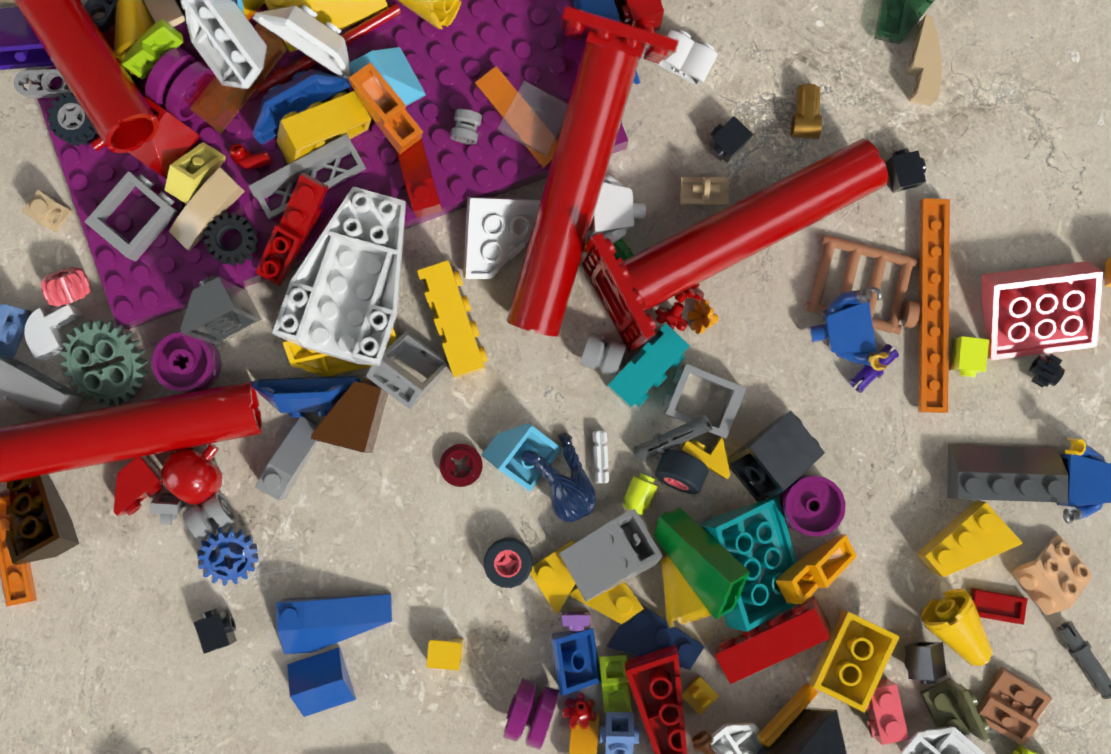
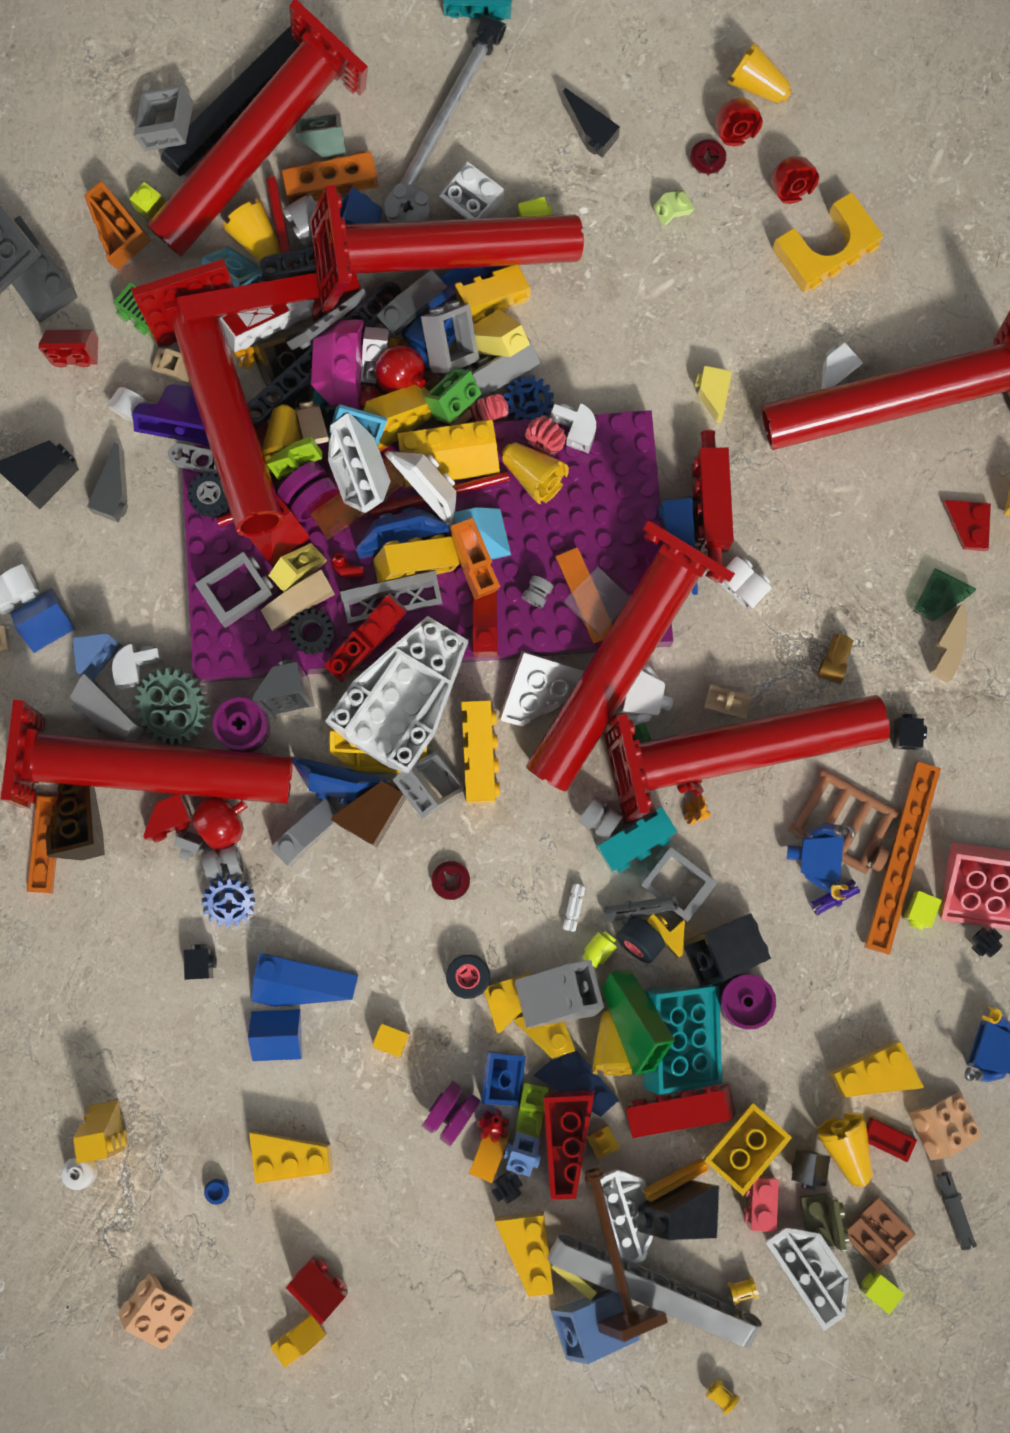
camera: 20 degrees right, 5 degrees down
(46, 211) = (160, 563): tan brick -> none
(65, 286) = (158, 632): coral gear -> none
(506, 451) = (507, 885): medium azure slope -> none
(570, 496) = (538, 933): dark blue hair -> none
(576, 620) = (512, 1044): medium lavender plate -> none
(672, 316) = (670, 803): red plant -> none
(729, 139) = (761, 663): black brick -> none
(816, 570) = (736, 1059): light orange slope -> none
(1006, 473) = (927, 1023): dark grey slope -> none

